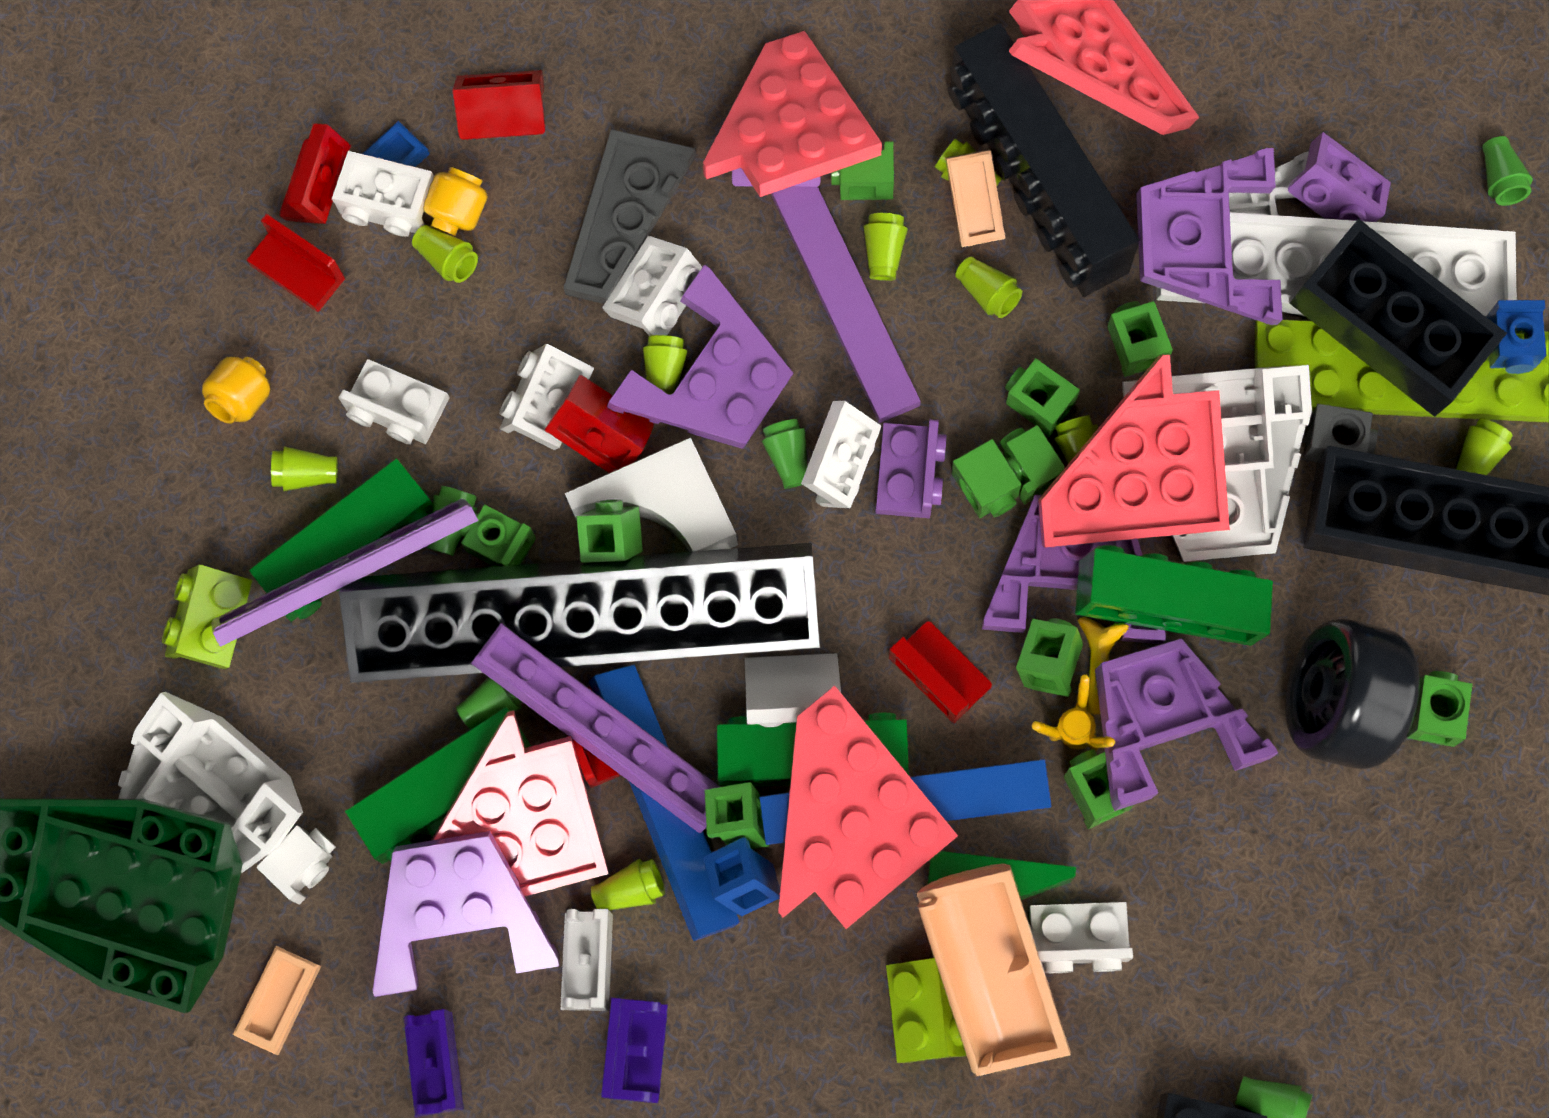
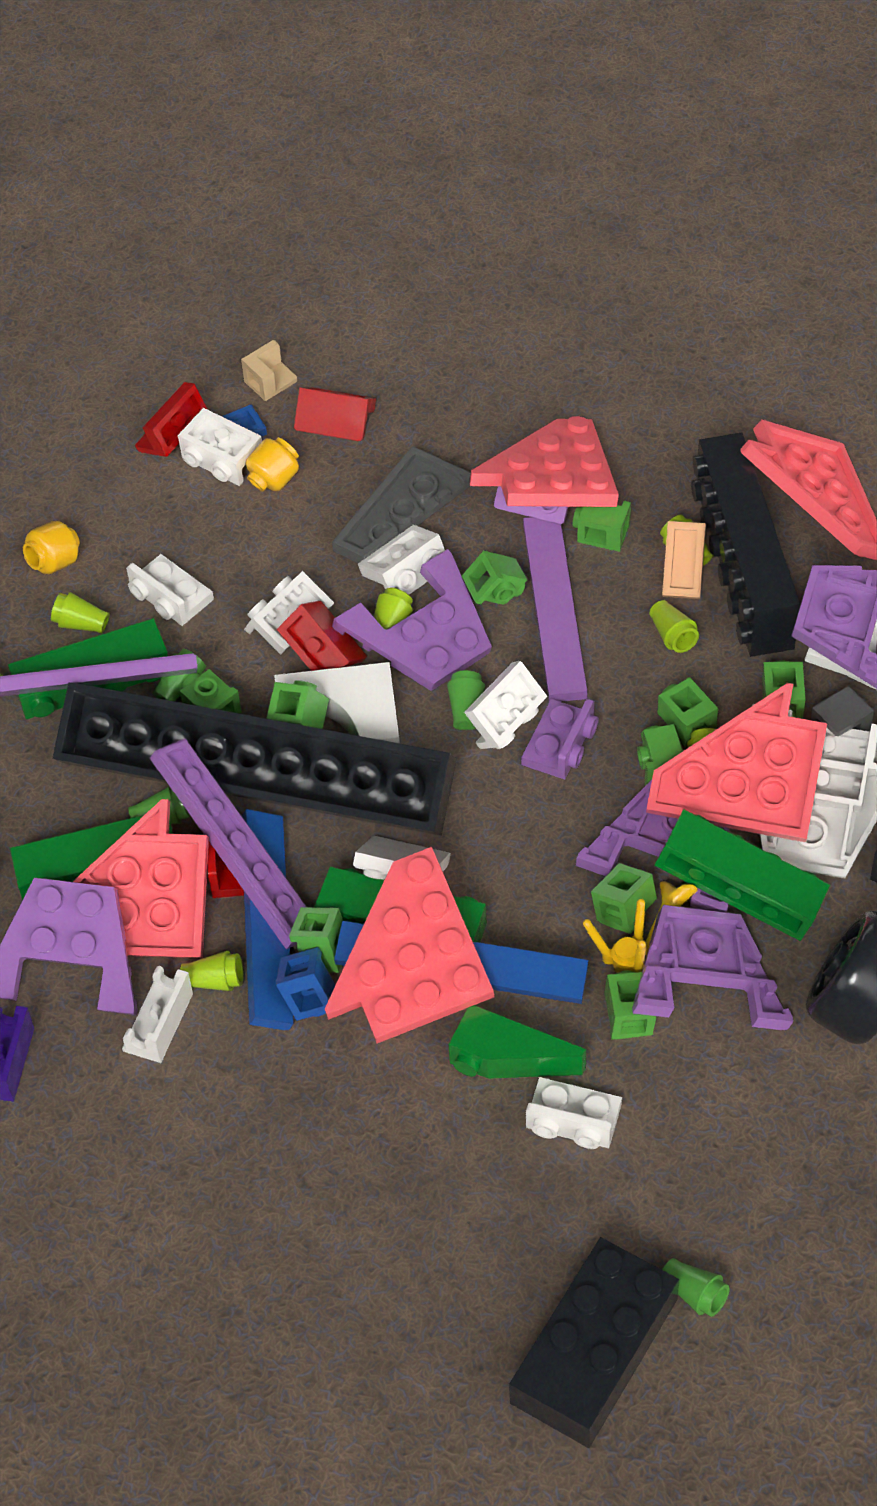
camera: 15 degrees right, 20 degrees down
(296, 265) = (133, 477): red panel -> none
(402, 71) = (266, 372): none -> tan panel
(446, 254) = (251, 499): lime cone -> none
(634, 1050) = (168, 1091): dark purple hinge -> none
(769, 287) = (504, 582): none -> bright green brick
(884, 244) = (599, 576): lime cone -> none
(921, 1013) = (425, 1131): lime bracket -> none
(940, 671) = (529, 887): red panel -> none
(987, 480) = (619, 757): bright green brick -> none
(991, 970) = (483, 1102): light nougat container -> none
(1216, 353) = (844, 712): none -> dark grey panel

